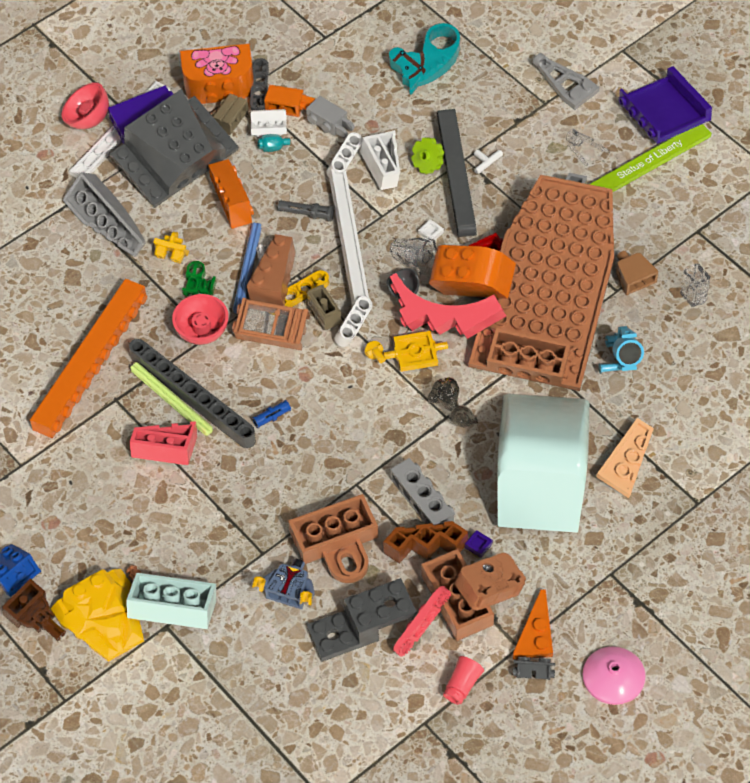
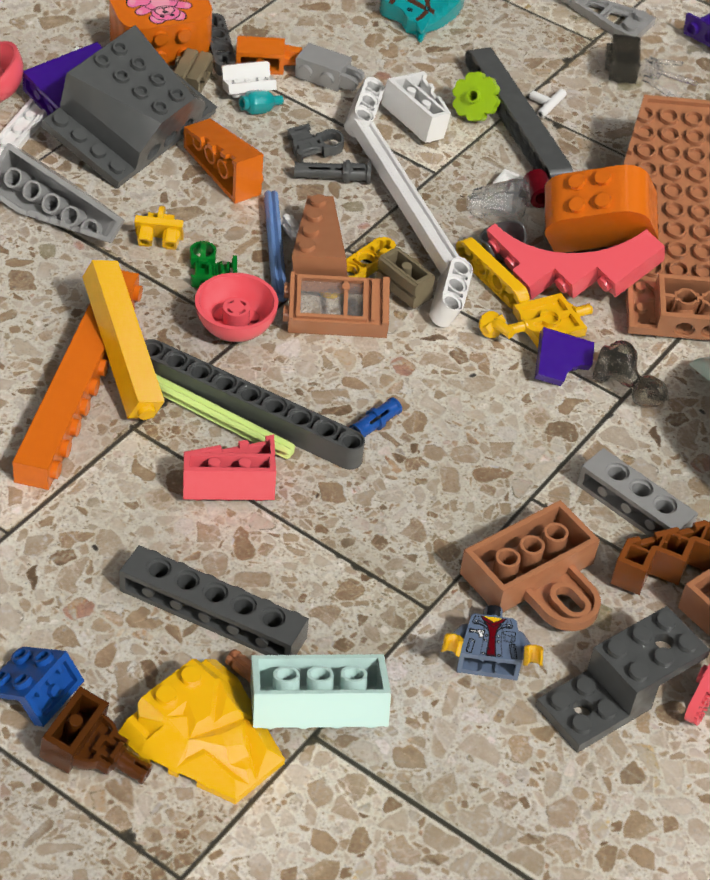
camera: 20 degrees left, 10 degrees down
(118, 338) = (123, 340): none -> yellow brick
(163, 564) = (212, 603): none -> dark grey brick
(297, 184) = (306, 144): none -> dark grey piece
(388, 307) = (492, 272): none -> yellow beam
(411, 380) = (560, 354): none -> dark purple tile
(447, 235) = (537, 179): none -> dark red brick
(555, 127) = (623, 58): none -> clear smoke brick

